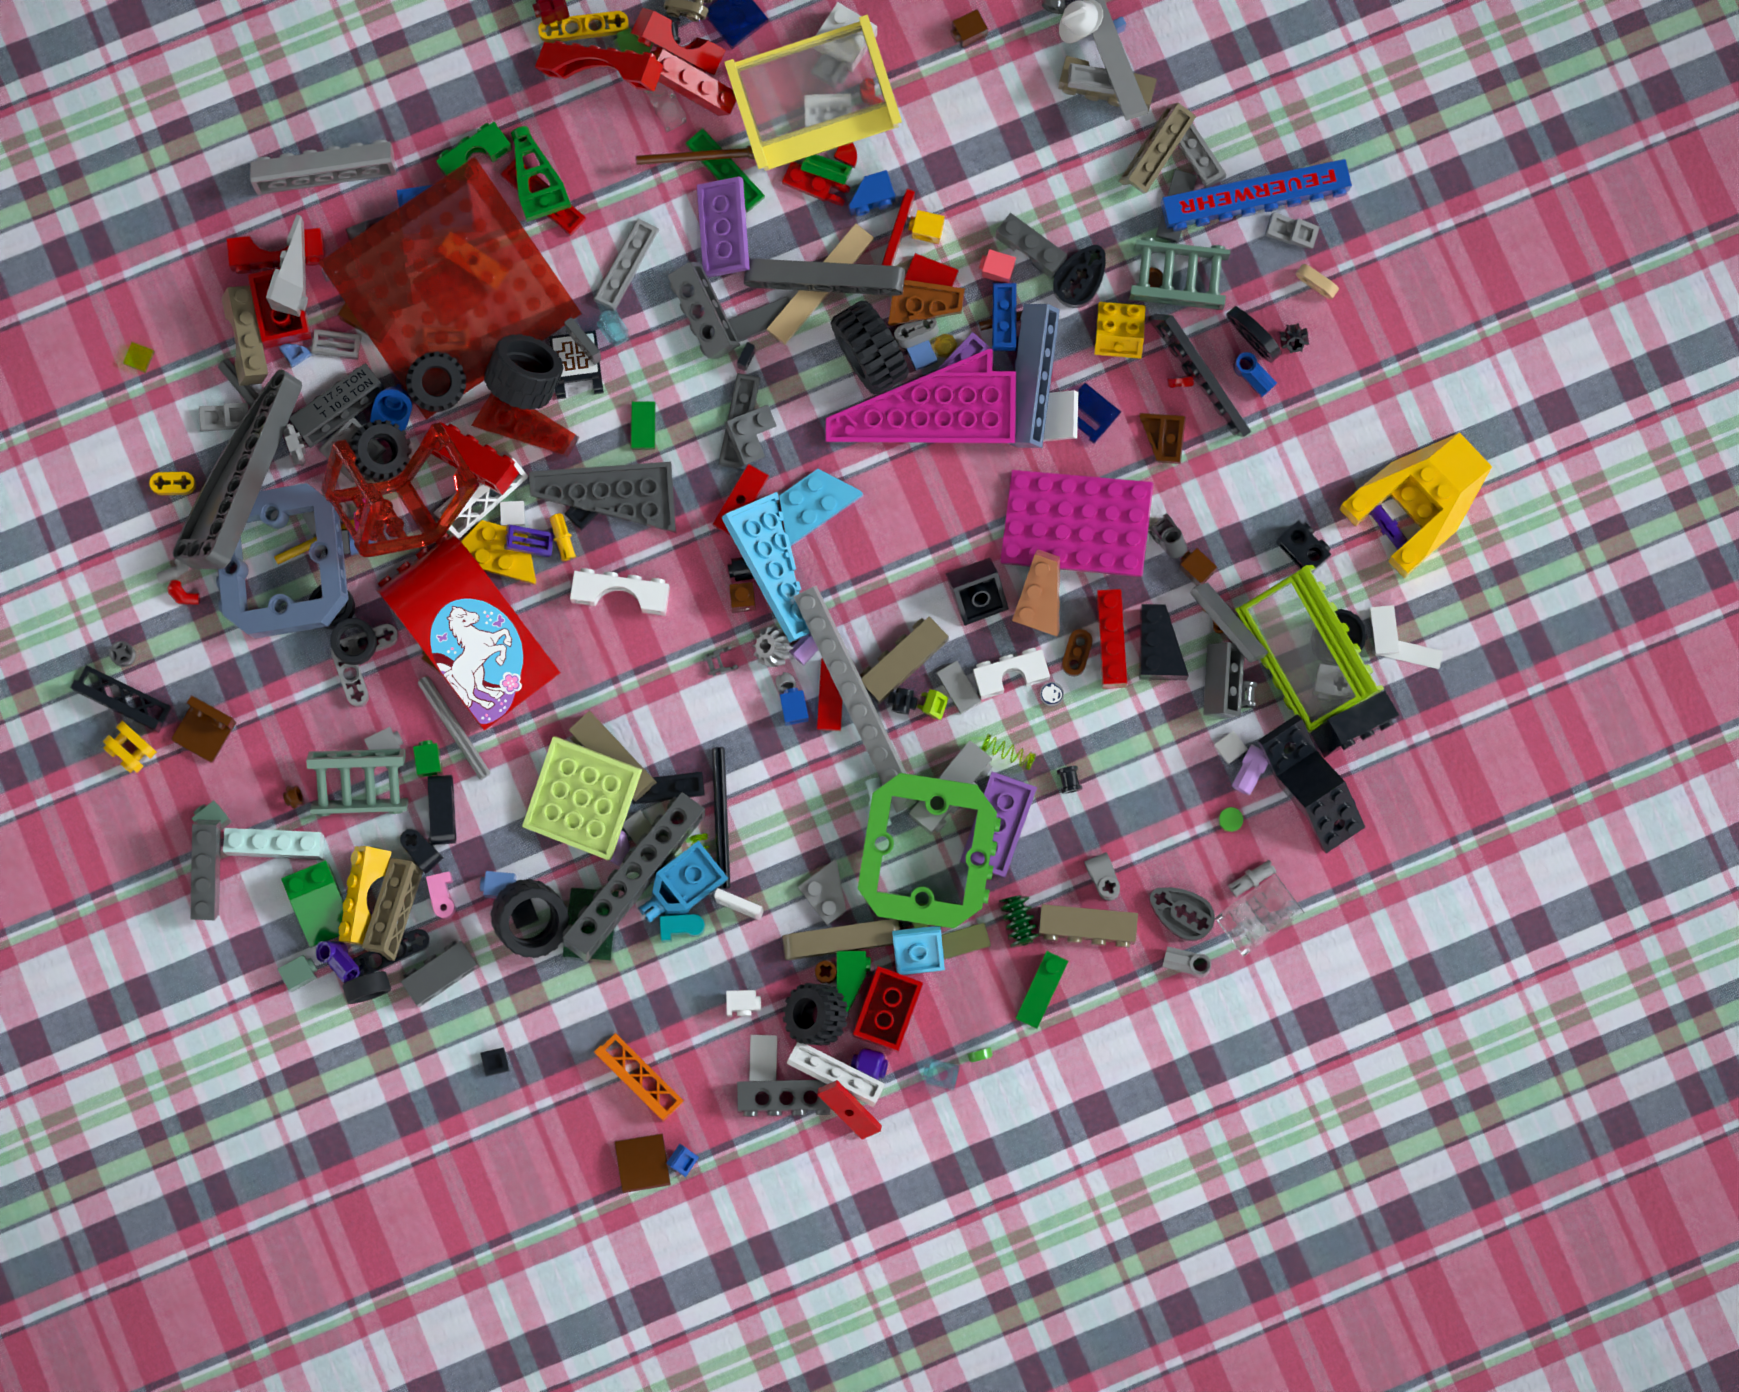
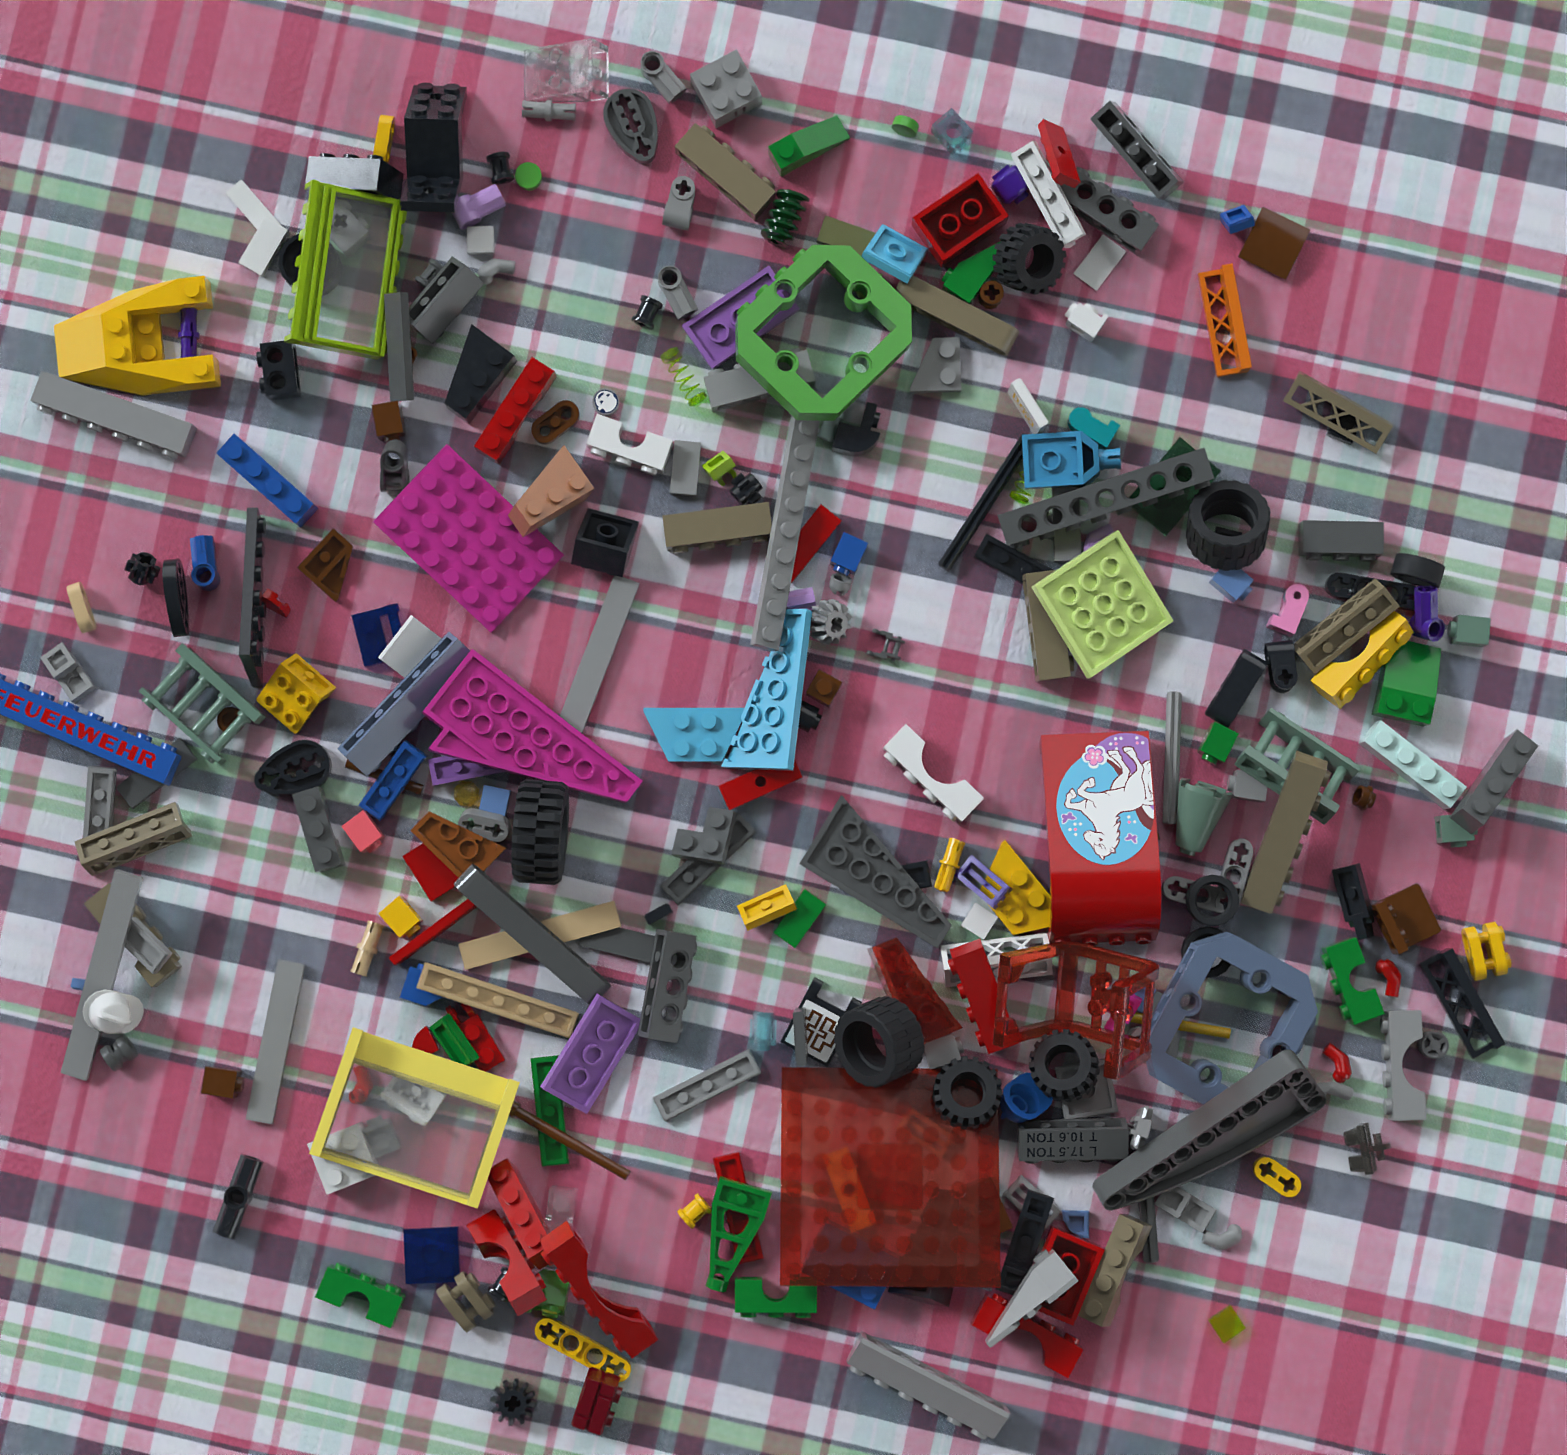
camera: 145 degrees left, 5 degrees up
(115, 601) = (1400, 1031): none -> light grey arch
(119, 548) = (1366, 1160): none -> clear smoke hips
(180, 412) = (1225, 1240): none -> light grey arm
(185, 683) = (1392, 975): none -> red arm
(230, 667) = (1340, 960): none -> green arch
(249, 717) = (1354, 899): none -> black hinge
(322, 311) = (1025, 1240): none -> black slope
(334, 721) = (1284, 832): none -> dark tan brick
(407, 699) = (1198, 814): none -> sand green cone
(472, 402) = (943, 1050): none -> light grey brick
(506, 1076) = (1342, 402): none -> dark tan fence
(572, 172) = (694, 1211): none -> yellow bush
(672, 415) = (766, 907): none -> yellow plate
(793, 1156) = (1136, 150): none -> dark grey brick
(816, 216) = (497, 1000): none -> tan tile
(848, 794) = (856, 440): none -> black brick
(924, 510) = (599, 652): none -> light grey tile
(935, 189) = (367, 948): none -> tan pin
(953, 83) = (275, 1041): none -> light grey tile
(1056, 808) = (677, 294): none -> light grey piece
(1132, 986) = (726, 88): none -> light grey brick
(1206, 734) = (494, 266): none -> light grey arm
(1252, 801) = (500, 168): none -> black bush
(1270, 463) = (267, 480): none -> blue arch
(1355, 769) = (384, 137): none -> yellow beam
(1398, 432) = (113, 414): none -> light grey brick

